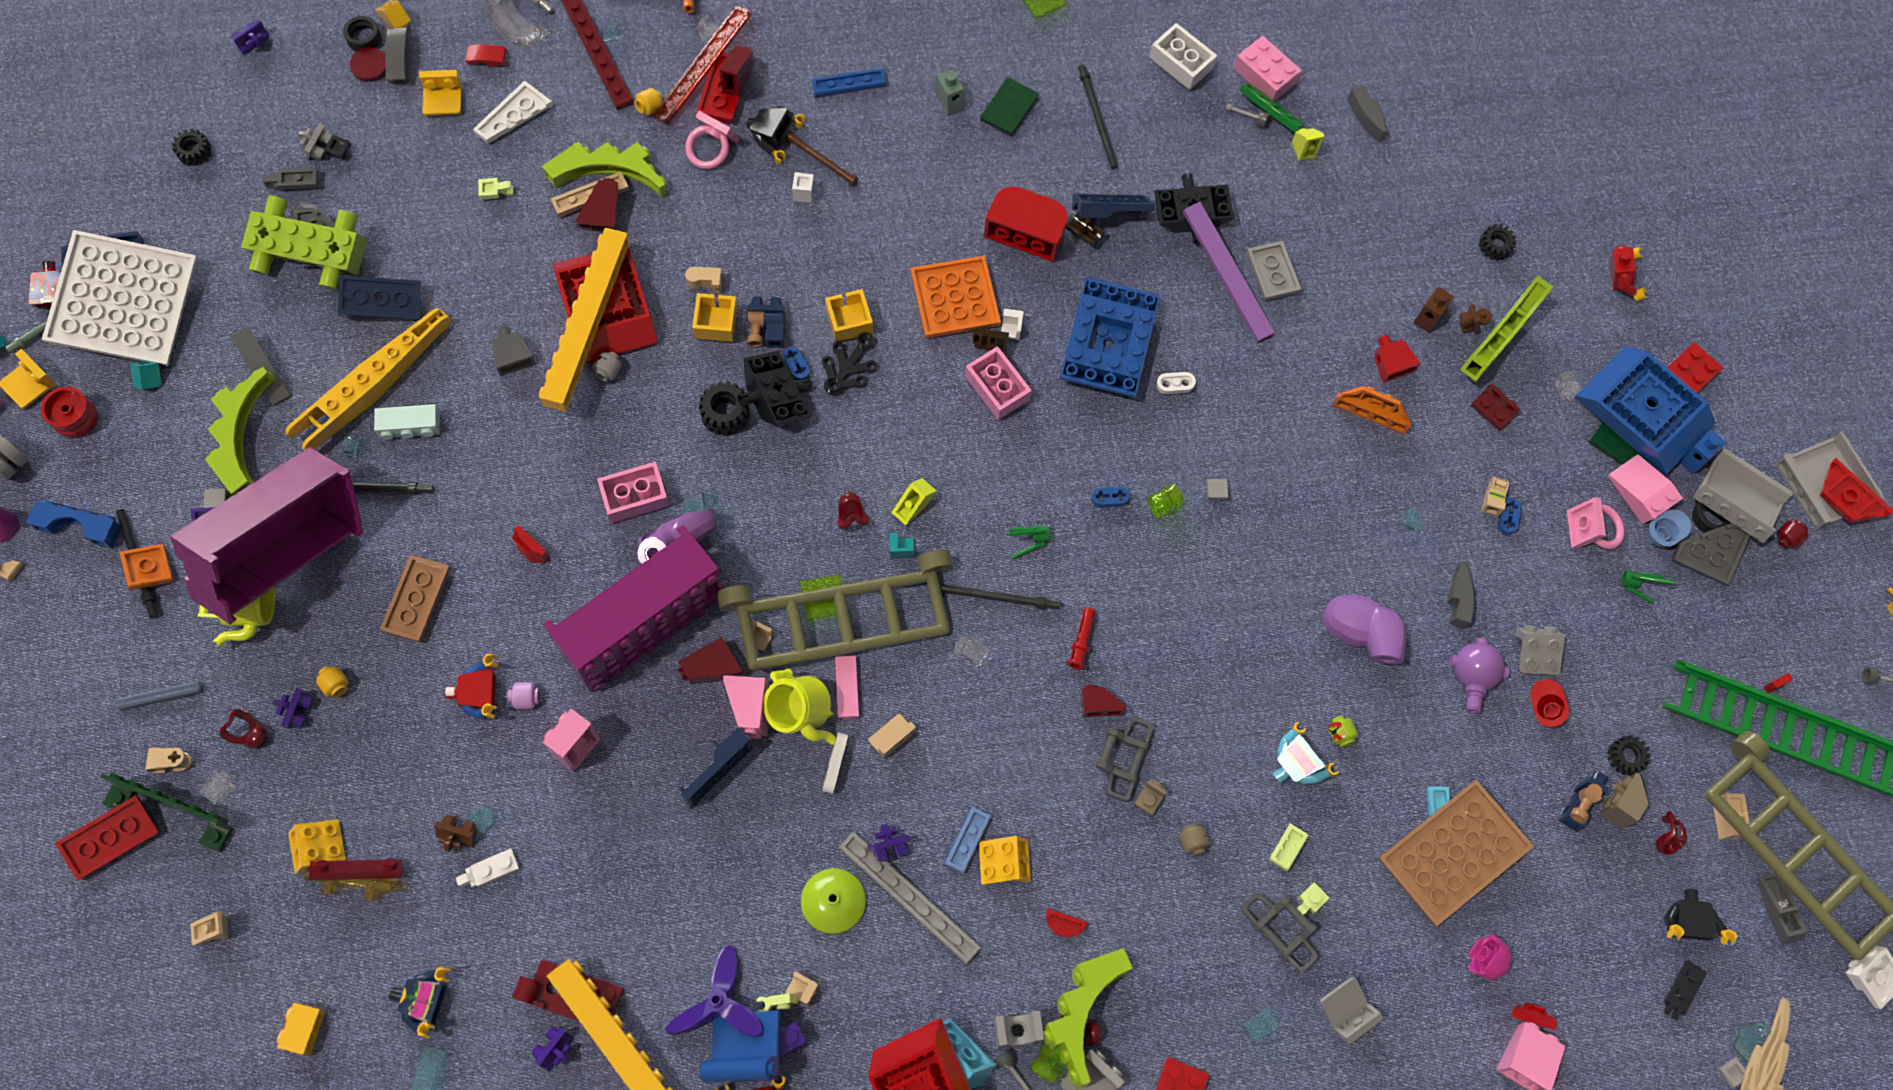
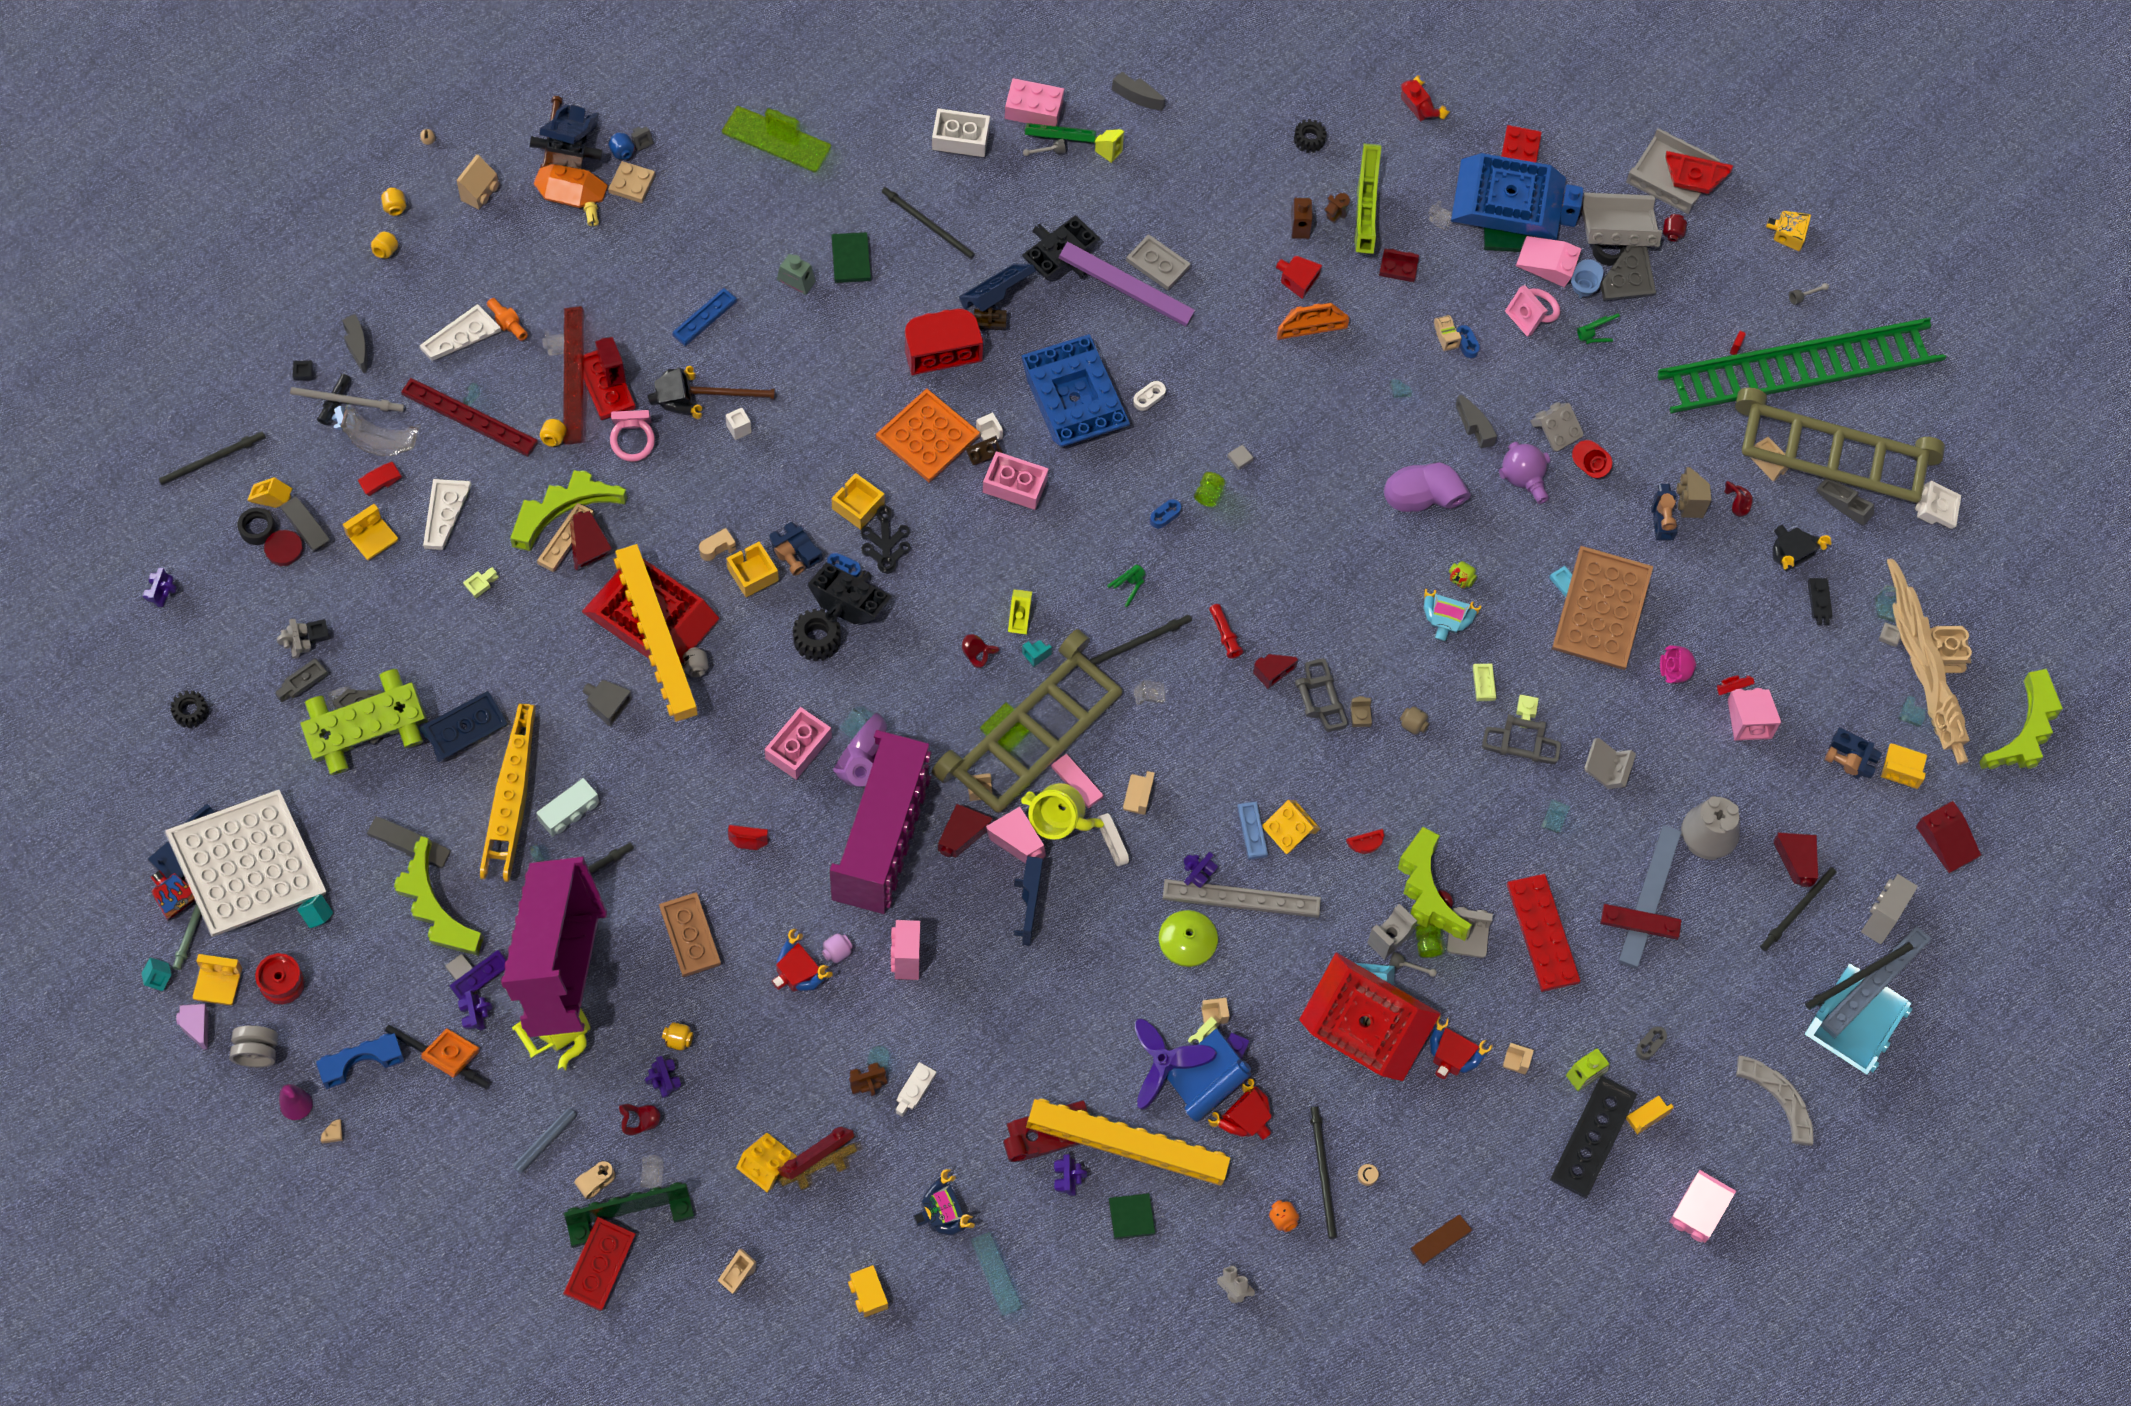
camera: 35 degrees left, 5 degrees down
(1639, 750) = (1674, 452): black tyre -> none

